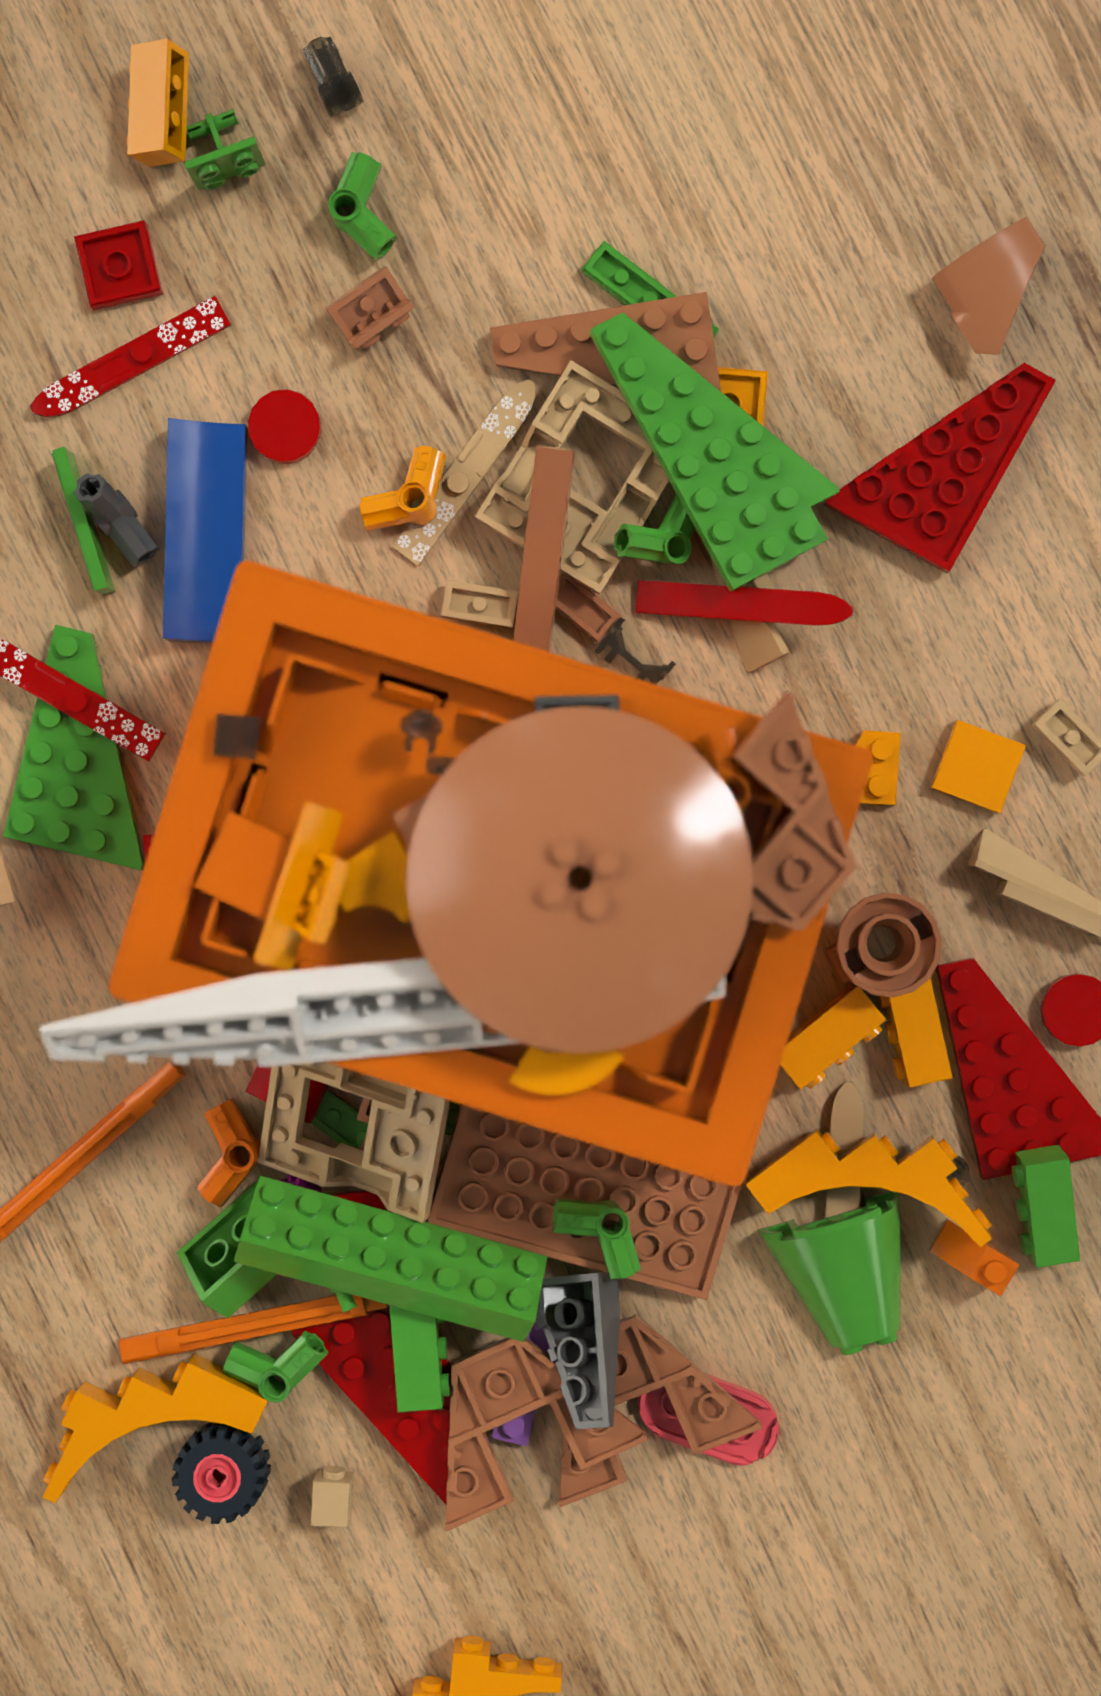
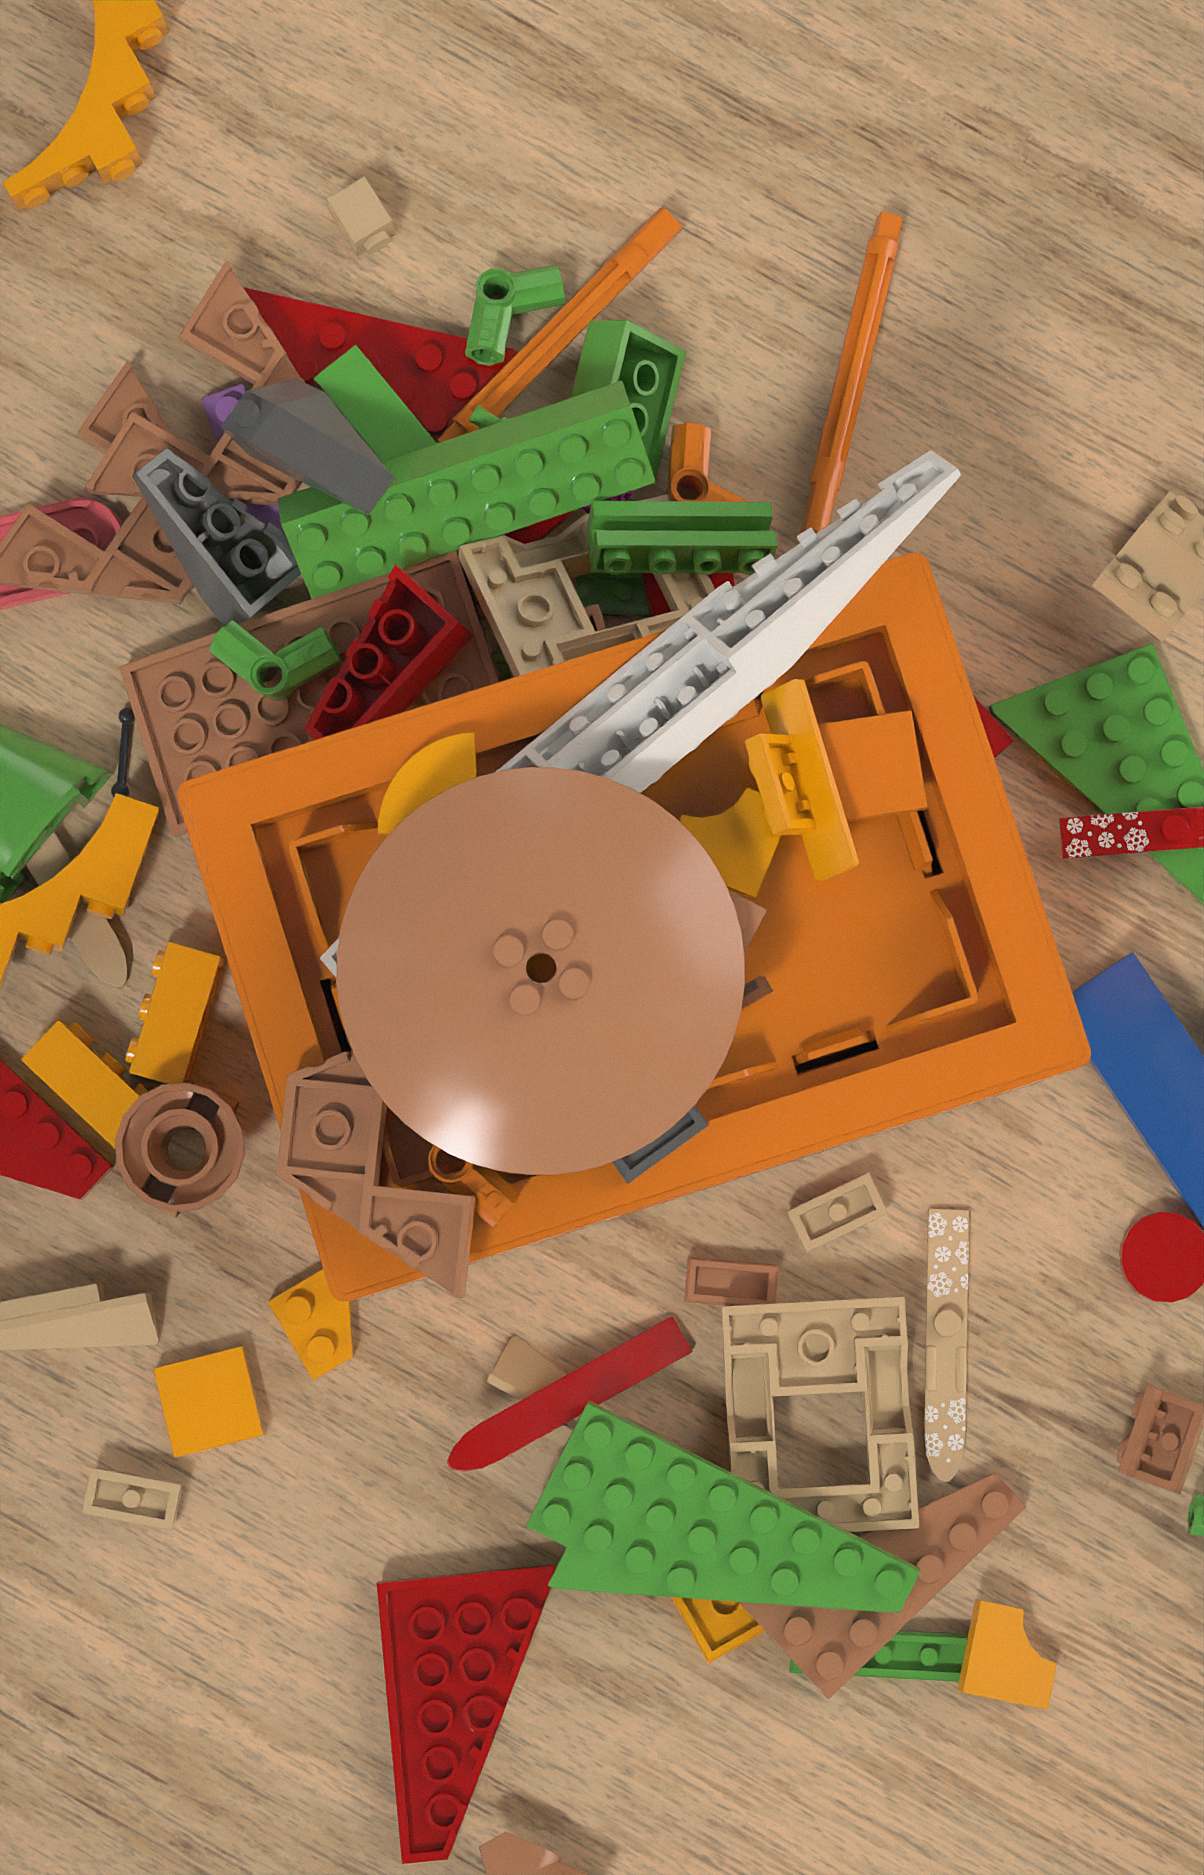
camera: 145 degrees right, 5 degrees down
(147, 1399) = (612, 188): light orange arch -> none
(221, 1472) = (490, 168): black wheel -> none
(236, 736) = (972, 884): clear smoke tile -> none
(269, 1126) = (679, 536): none -> bright green brick
(421, 482) = (994, 1252): light orange piece -> none
(421, 725) = (799, 1019): clear smoke plate -> none
(474, 1366) = (309, 440): none -> dark grey wedge
(526, 1174) = (392, 659): none -> red wedge
(543, 546) = (805, 1301): nougat tile -> none
(575, 241) = (1001, 1660): none -> light orange tile
(616, 641) = (672, 1272): clear smoke piece -> none
(652, 544) = (703, 1395): bright green piece -> none
(760, 1216) = (126, 717): none -> black hinge

